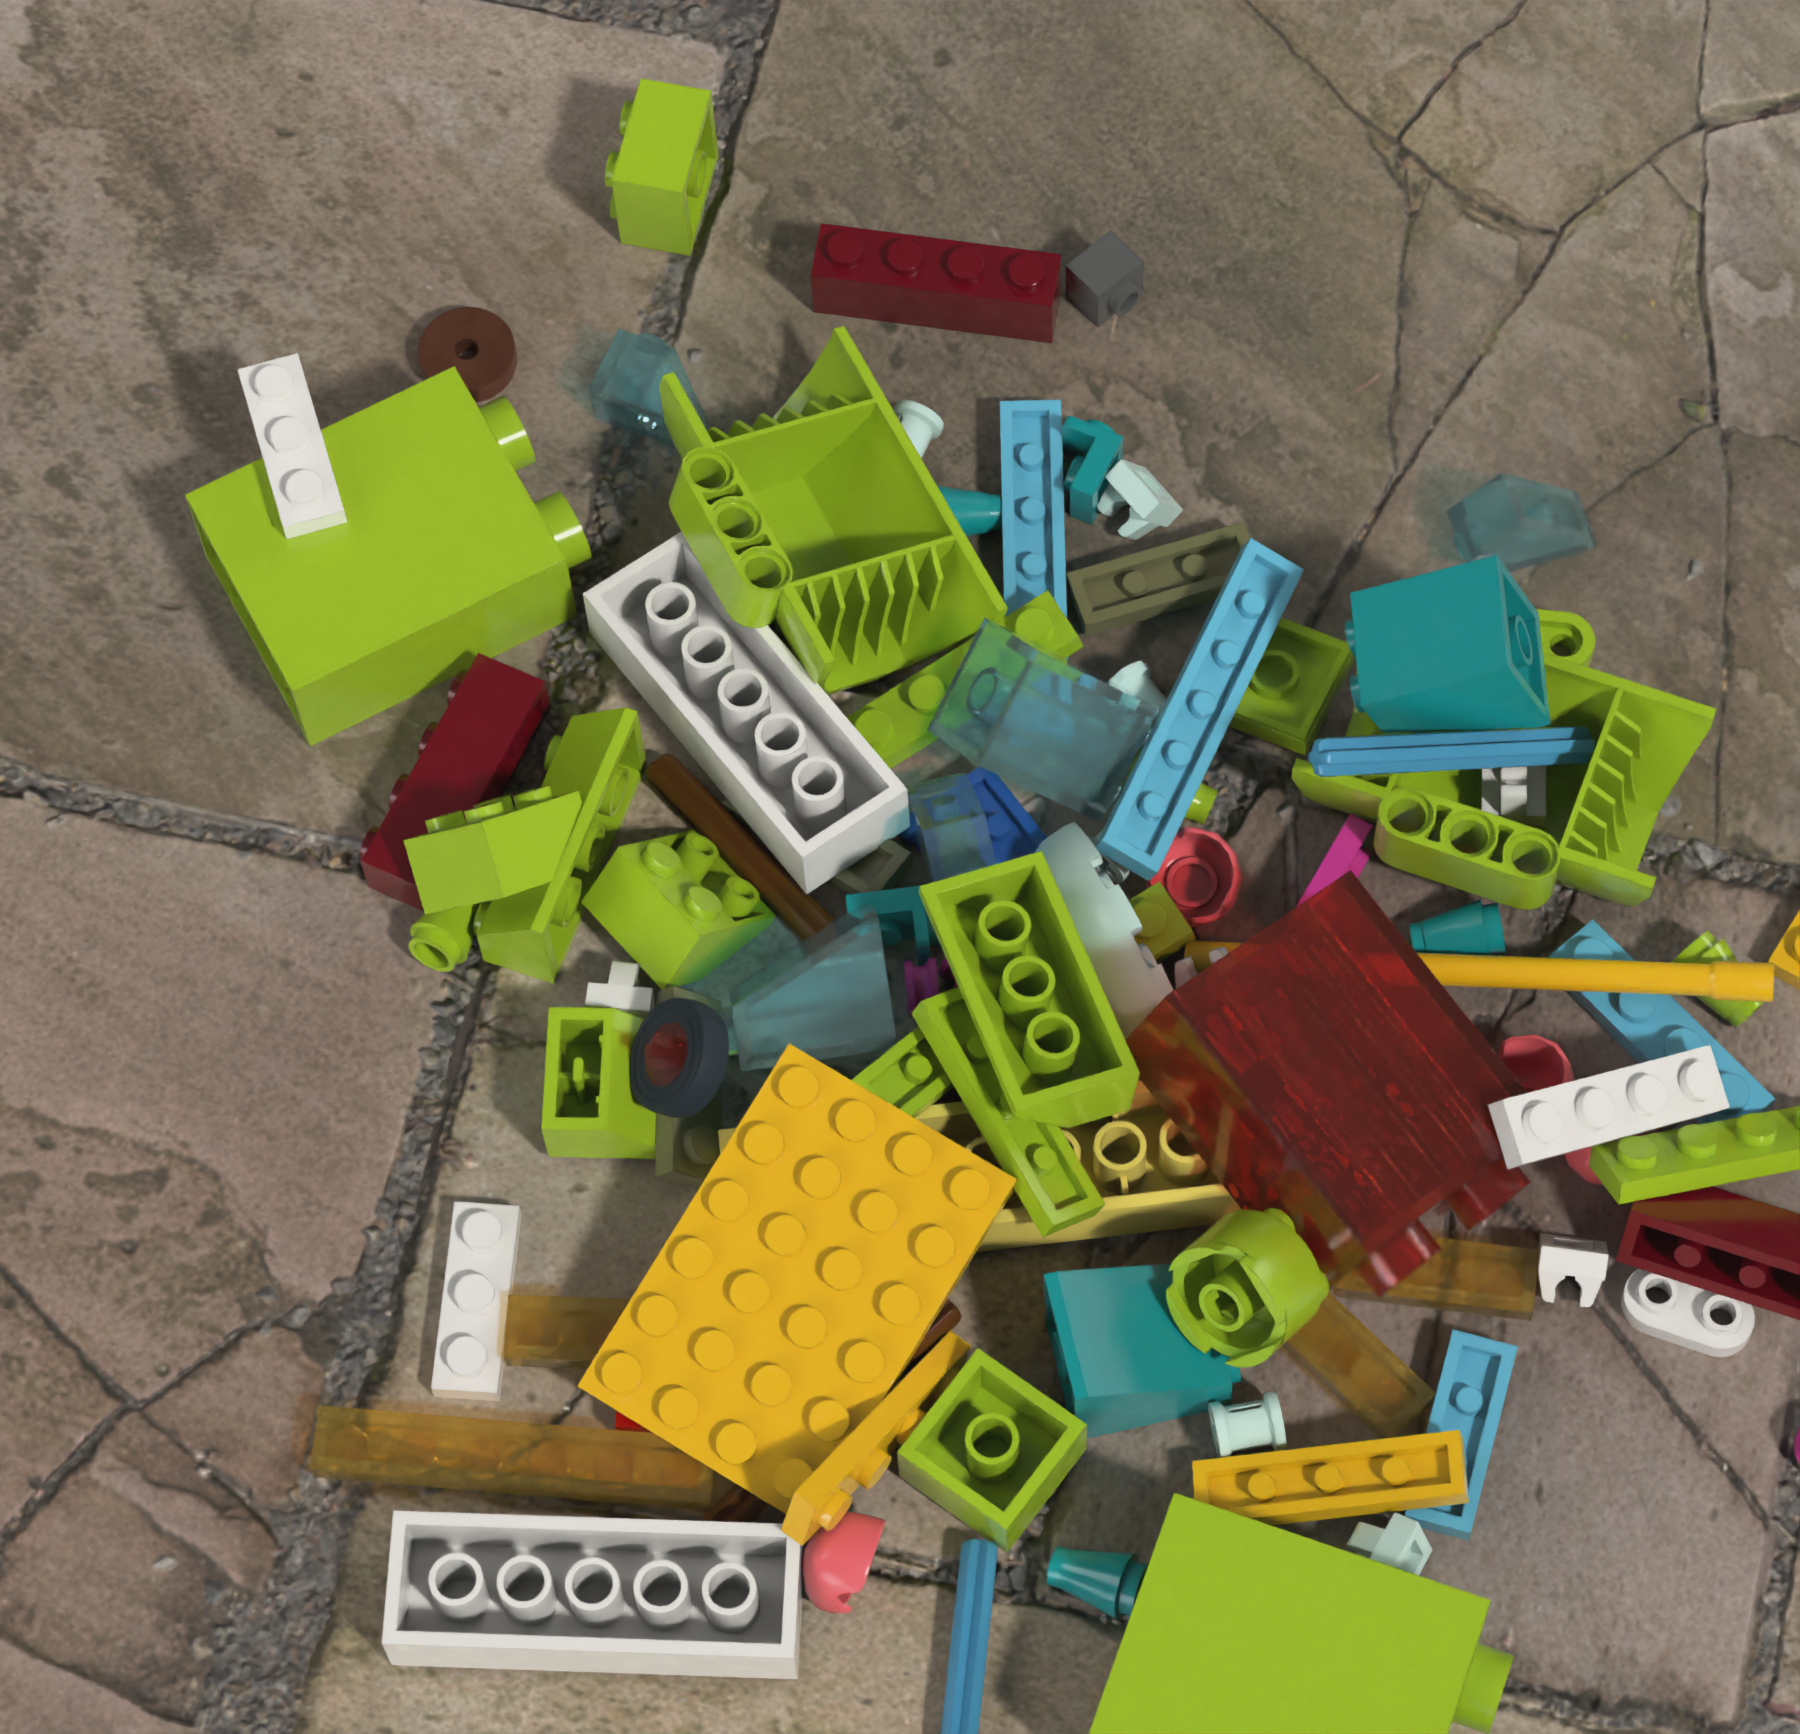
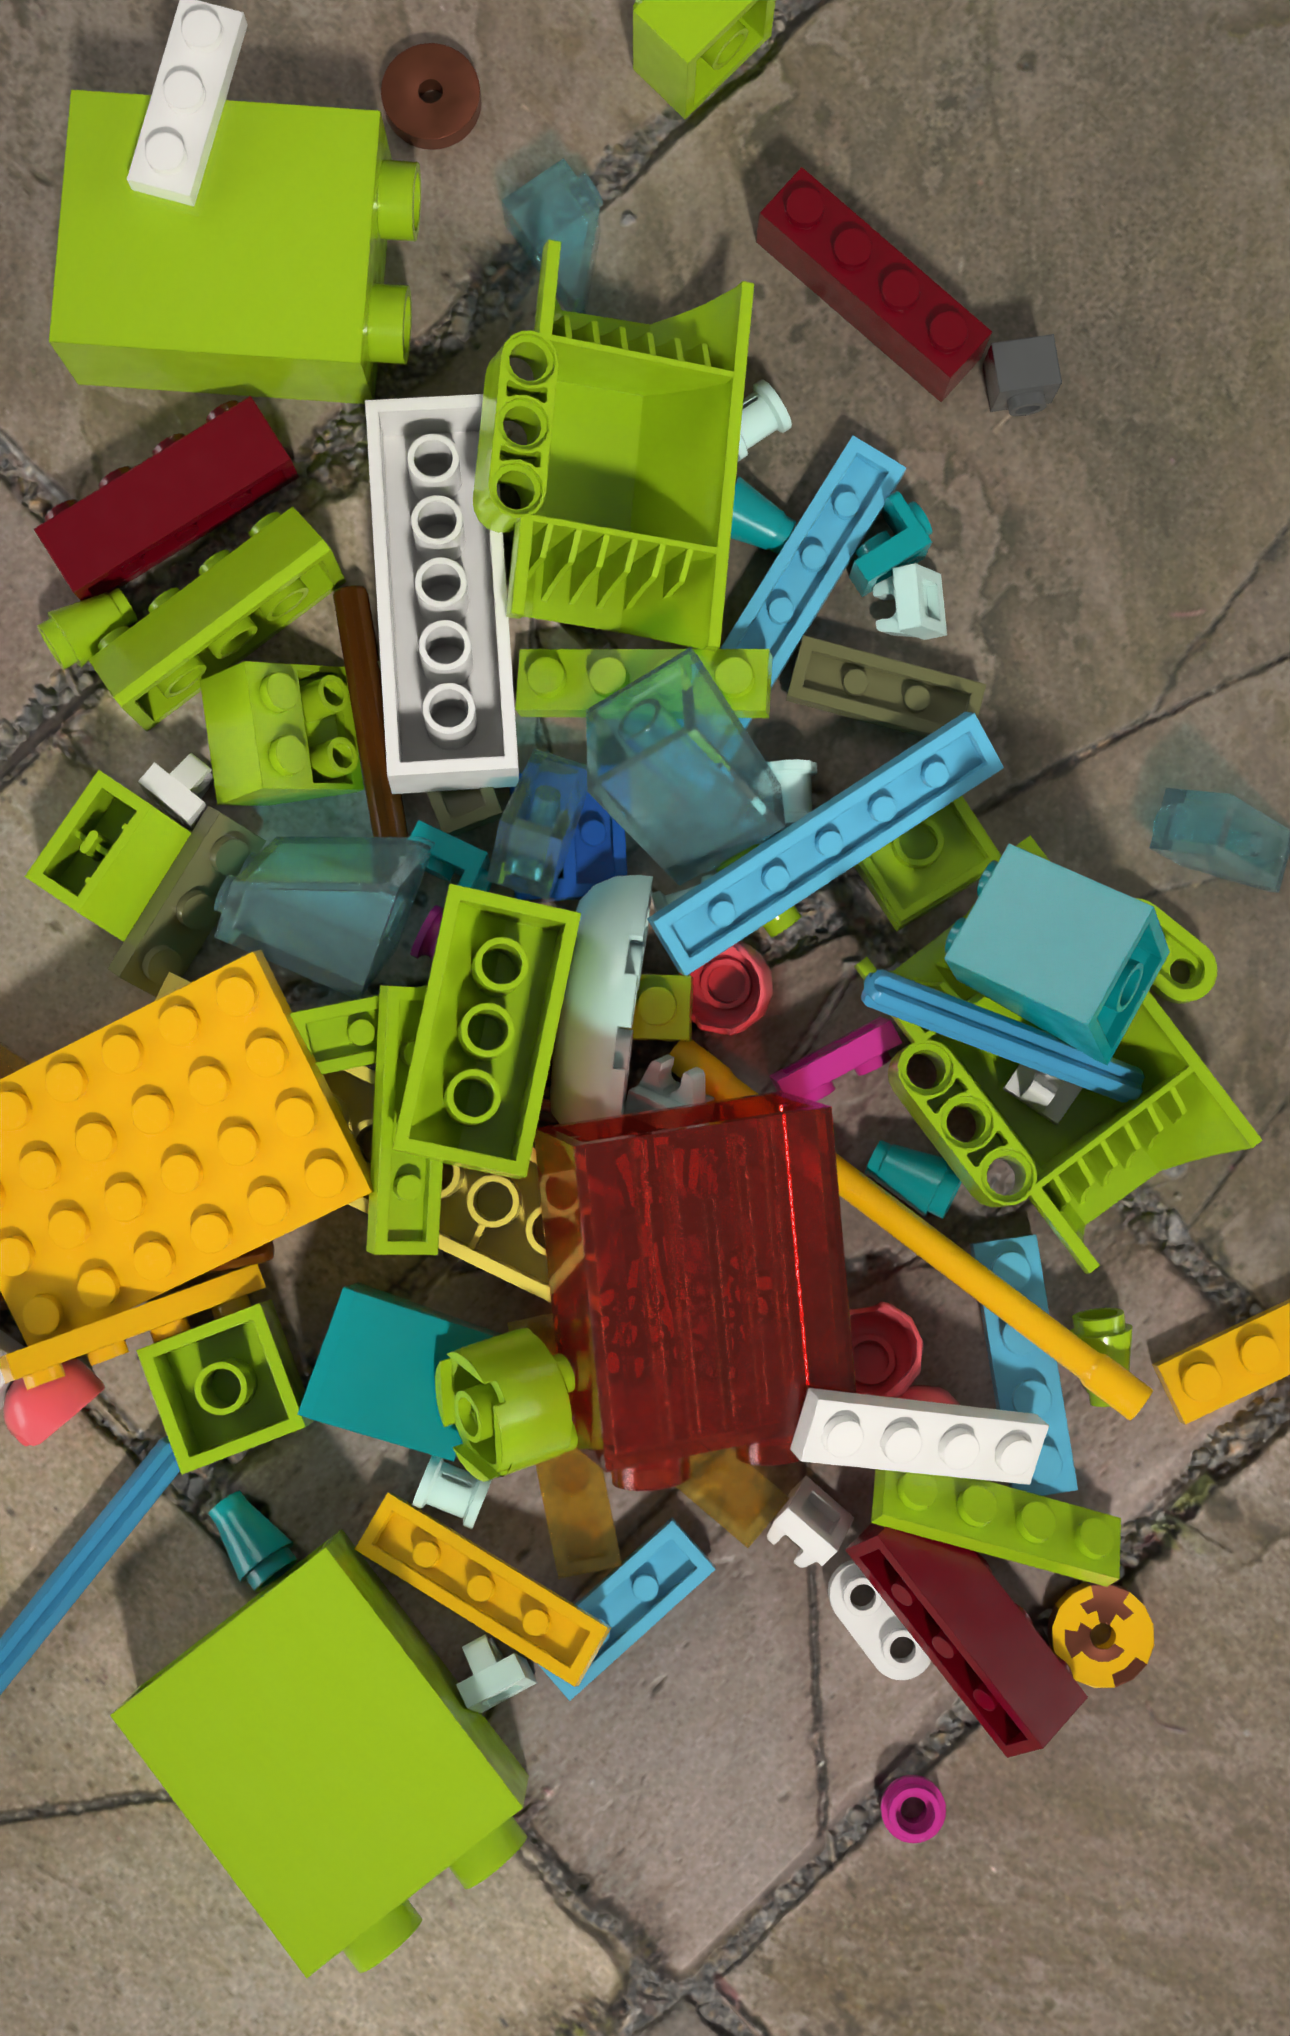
camera: 25 degrees right, 20 degrees up
(493, 850) = (134, 599): lime slope -> none
(679, 1057) = (174, 888): black wheel -> none

